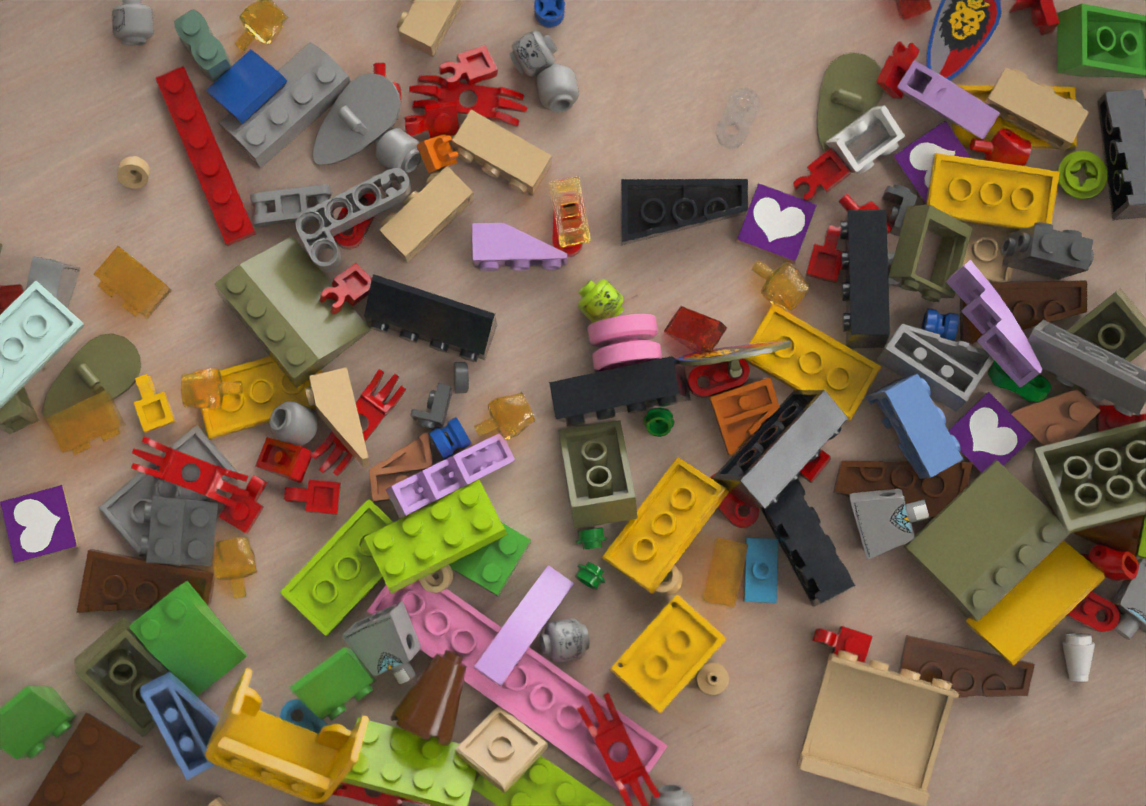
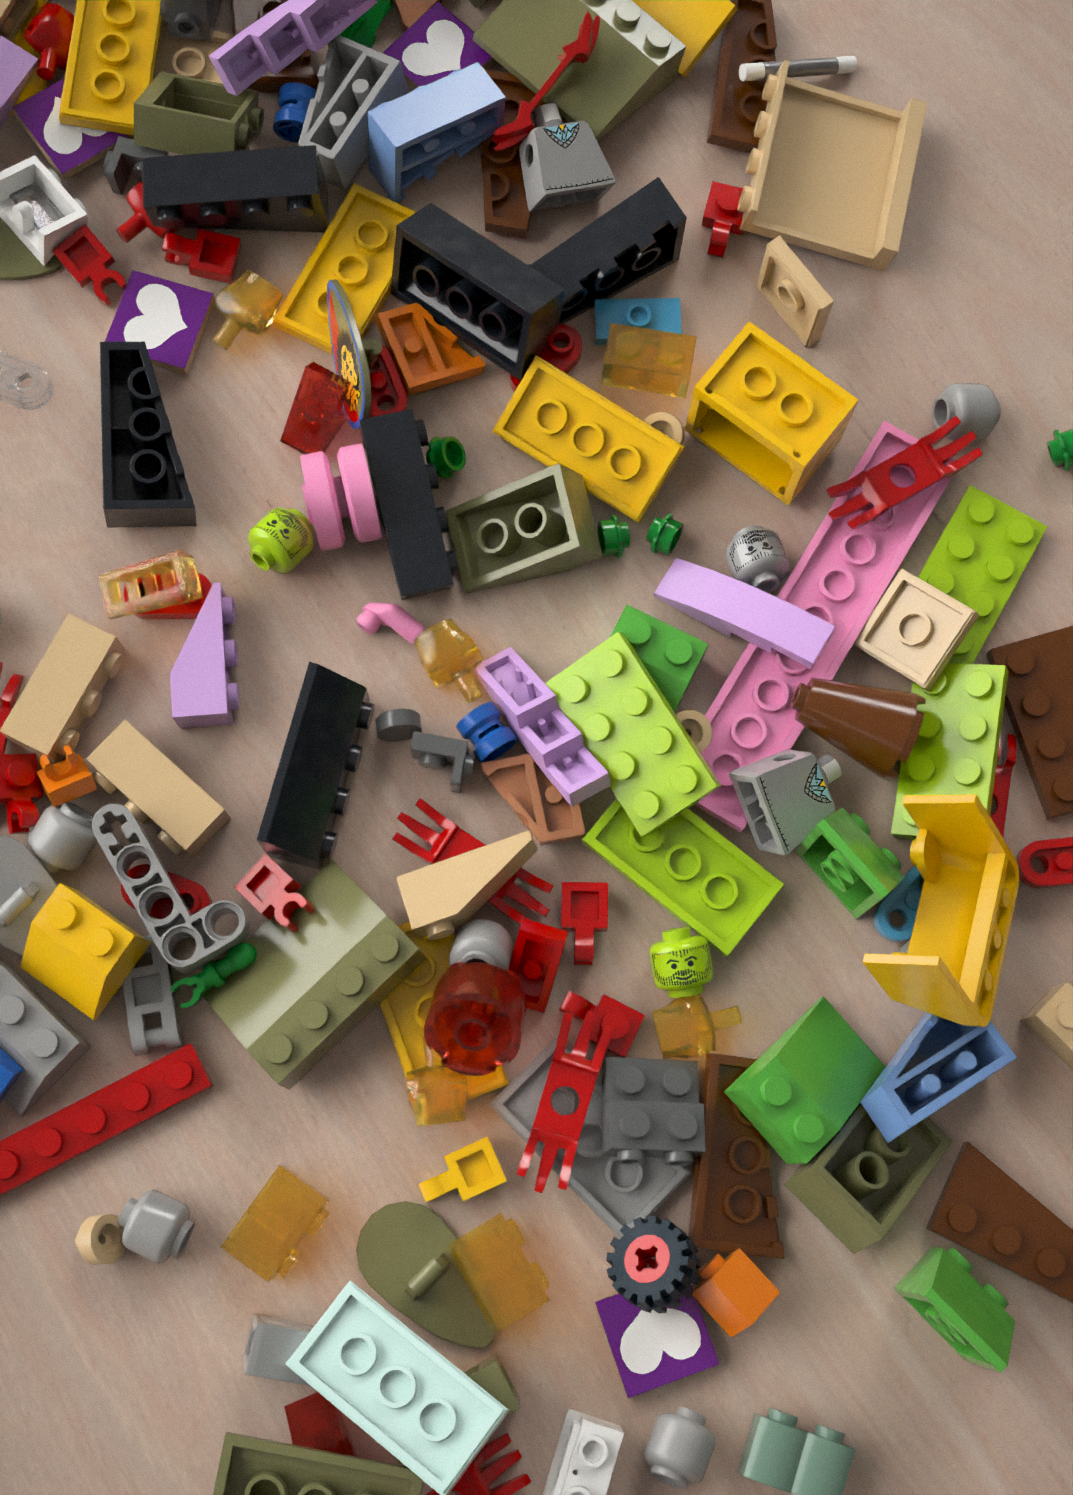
camera: 95 degrees left, 5 degrees down
(57, 575) = (734, 1291): none -> orange brick
(82, 533) = (667, 1275): none -> black wheel
(137, 206) = (156, 1226): none -> light grey head
(246, 414) = (476, 1018): none -> clear red brick
(277, 559) = (681, 963): none -> lime head
(297, 248) = (215, 973): none -> green piece
(319, 162) = (81, 950): none -> yellow slope
(540, 378) = (389, 615): none -> bright pink arm
(769, 685) = (794, 292): none -> tan tile
(965, 711) = (799, 68): none -> bar
(966, 532) = (577, 51): none -> red piece

